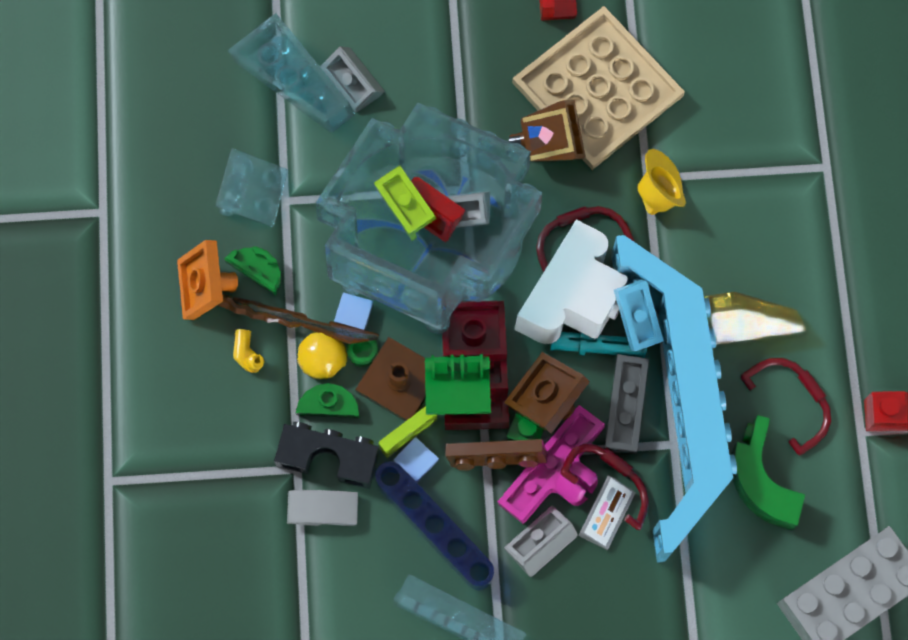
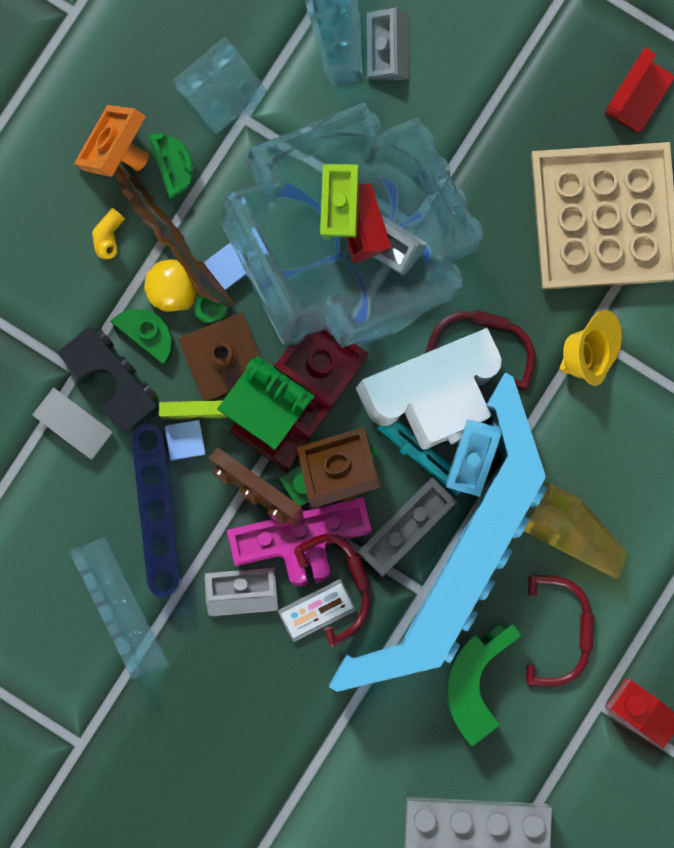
camera: 35 degrees right, 10 degrees up
(552, 133) = (524, 232): reddish brown torso -> none

